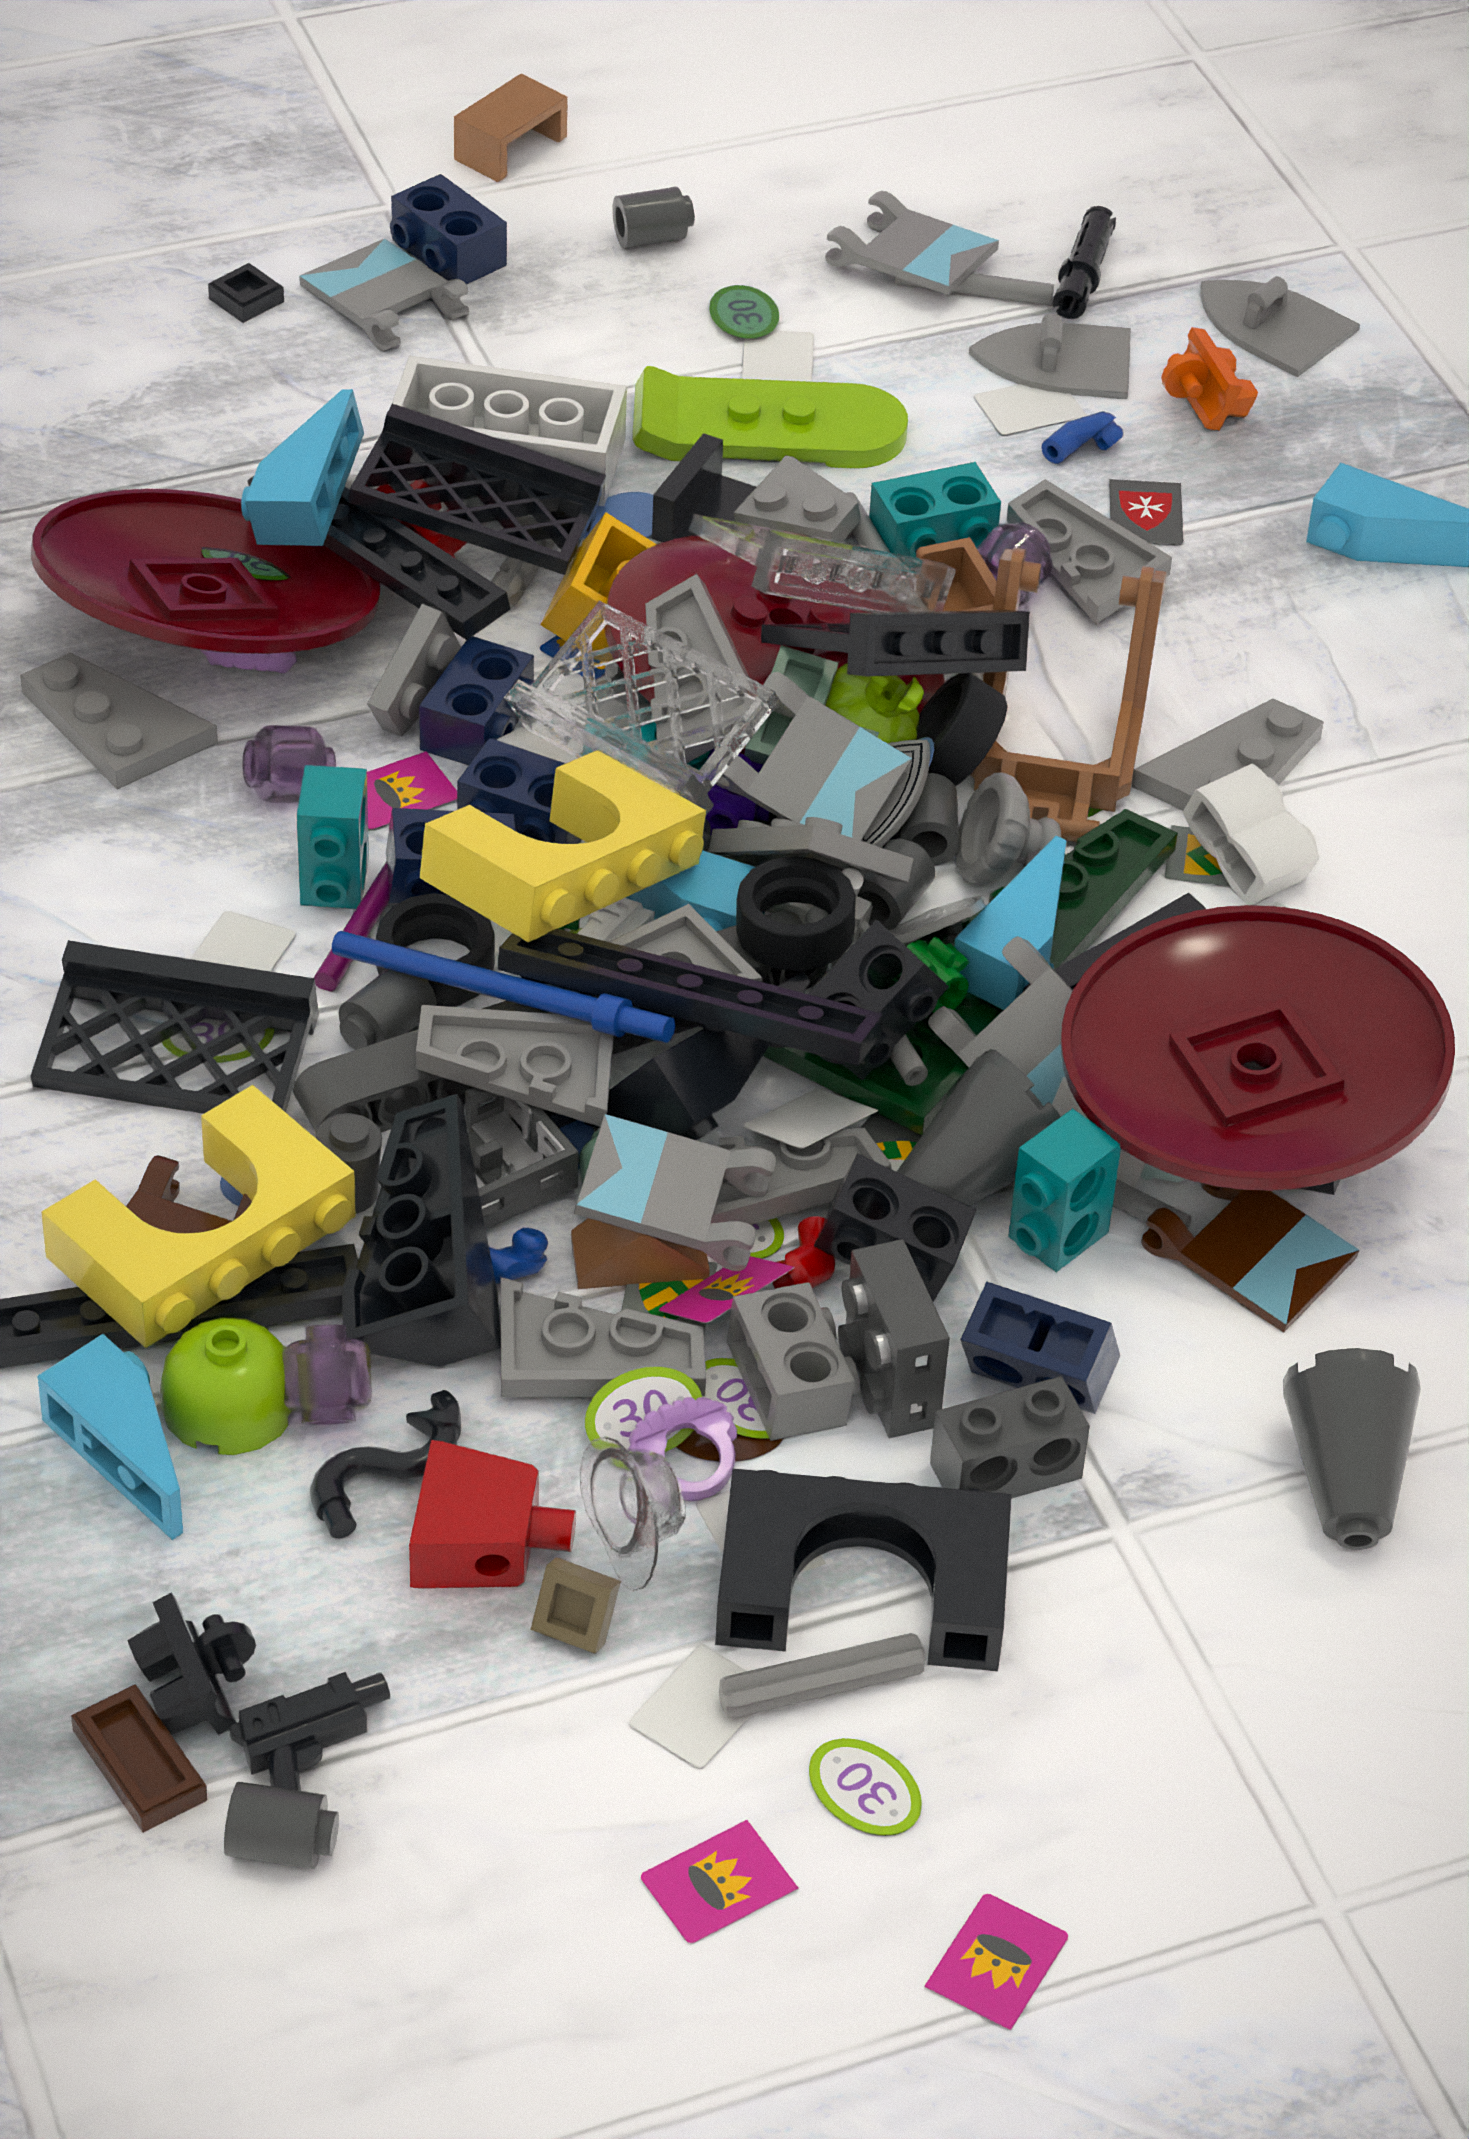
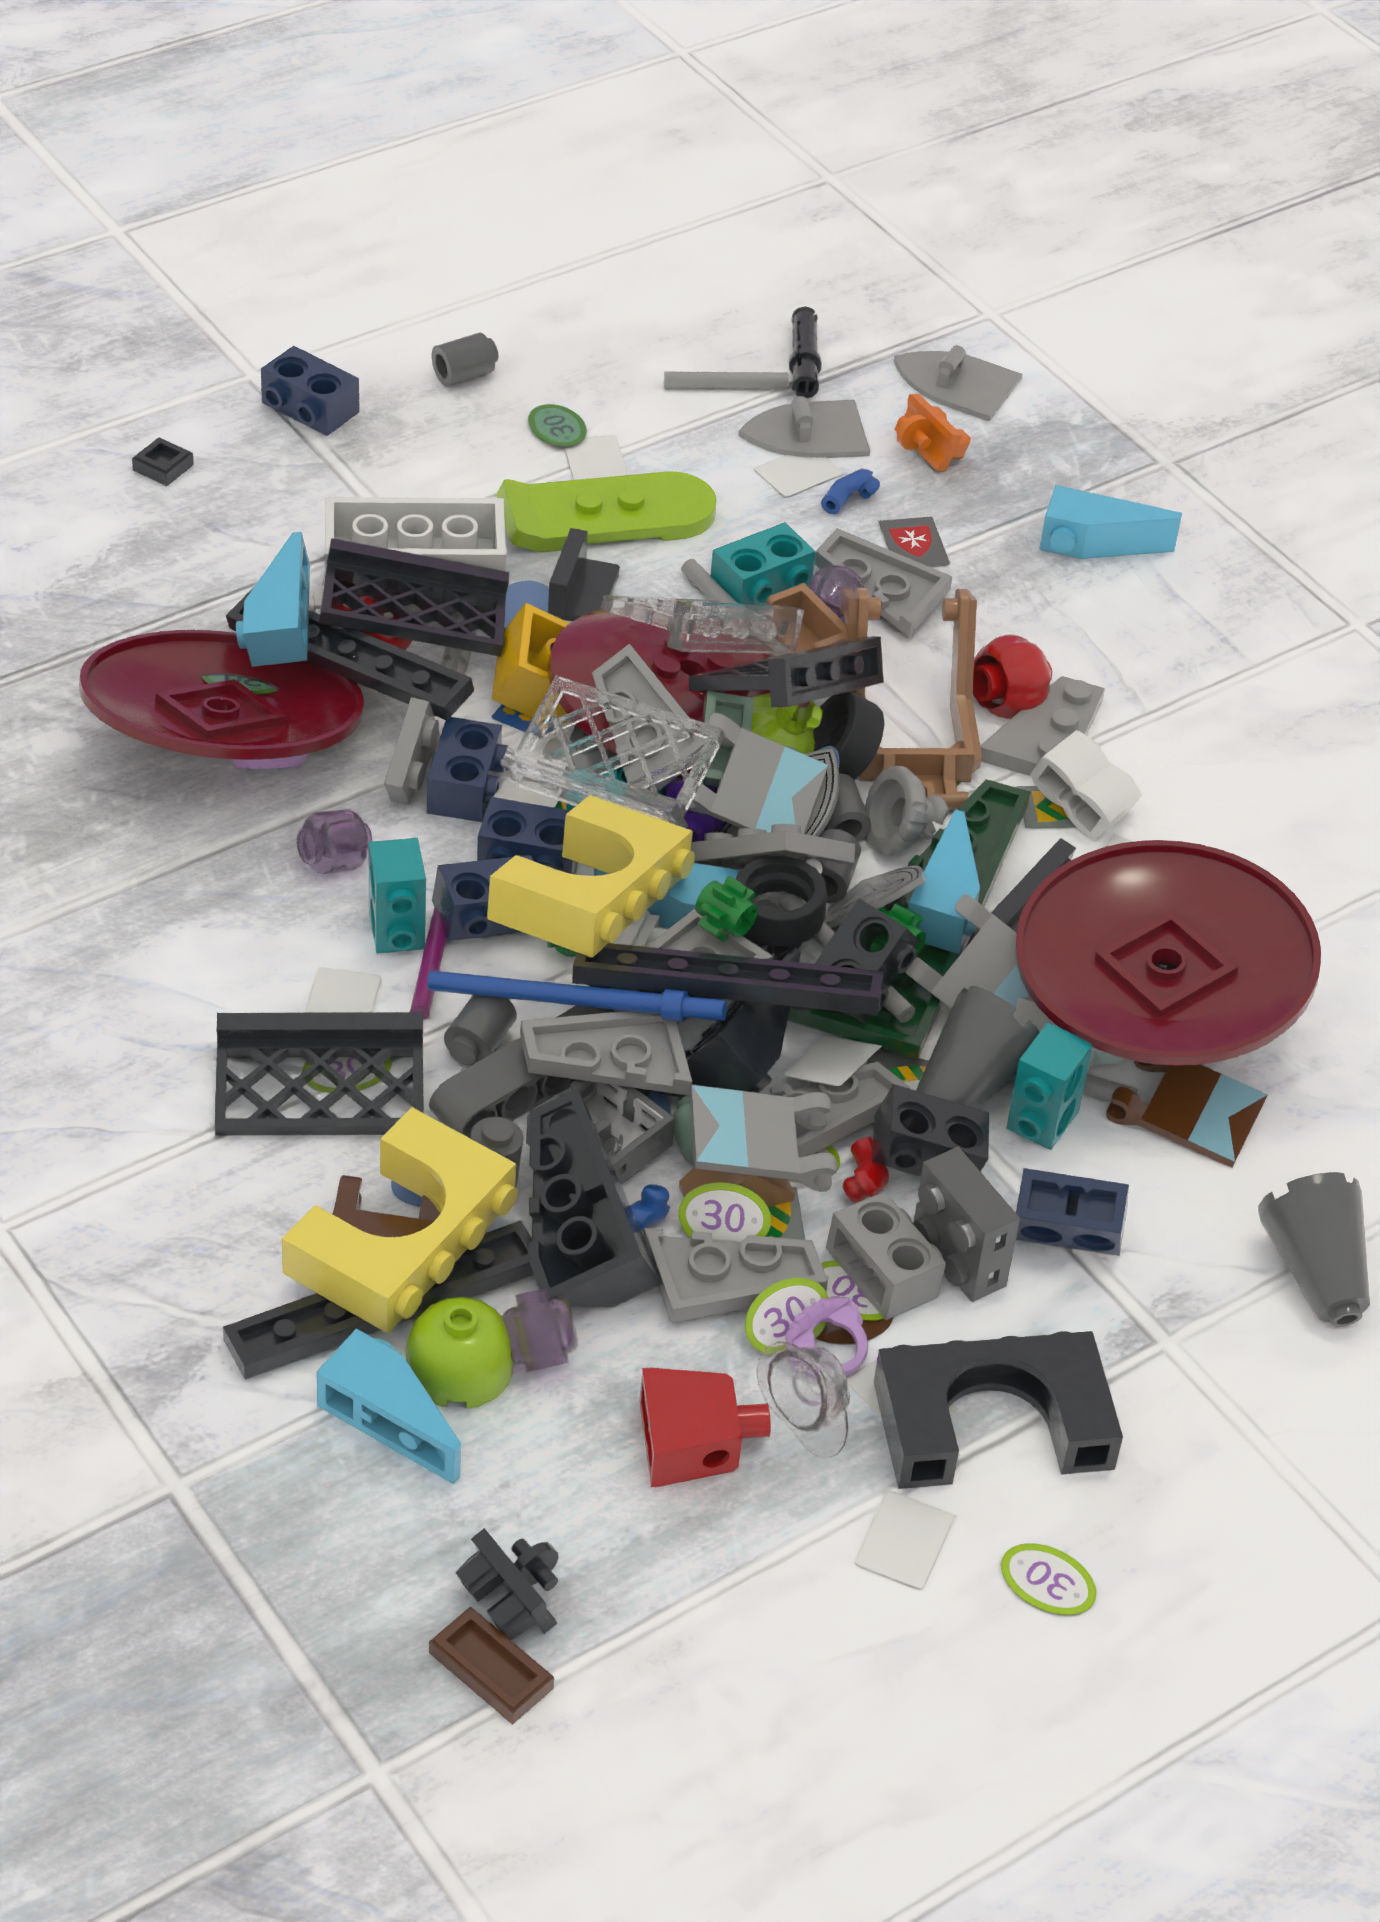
camera: 15 degrees left, 0 degrees up
(113, 720) = (178, 826): light grey wing -> none
(279, 1825) = (625, 1698): dark grey brick -> none
(293, 1730) = (606, 1620): black piece -> none
(327, 1488) = (563, 1421): black animal -> none
(379, 283) = (268, 441): light grey flag -> none
(406, 784) = (436, 842): dark pink sticker -> none
(441, 918) = (506, 947): black tyre -> none
(503, 116) = (323, 295): medium nougat panel -> none
(575, 1605) = (790, 1478): dark tan tile -> none
(607, 1275) = (725, 1211): none -> sticker
(714, 909) = (726, 909): none -> green gear
(715, 1293) = (814, 1210): dark pink sticker -> none
(718, 1882) = (965, 1675): dark pink sticker -> none
(801, 503) = (657, 573): light grey wing -> none
(821, 1675) = (990, 1498): light grey axle -> none
(913, 246) = (671, 356): light grey flag -> none
(997, 1960) = (1192, 1695): dark pink sticker -> none
(1011, 1440) = (1072, 1289): dark grey brick -> none
(1206, 684) = (1011, 670): none -> red plant

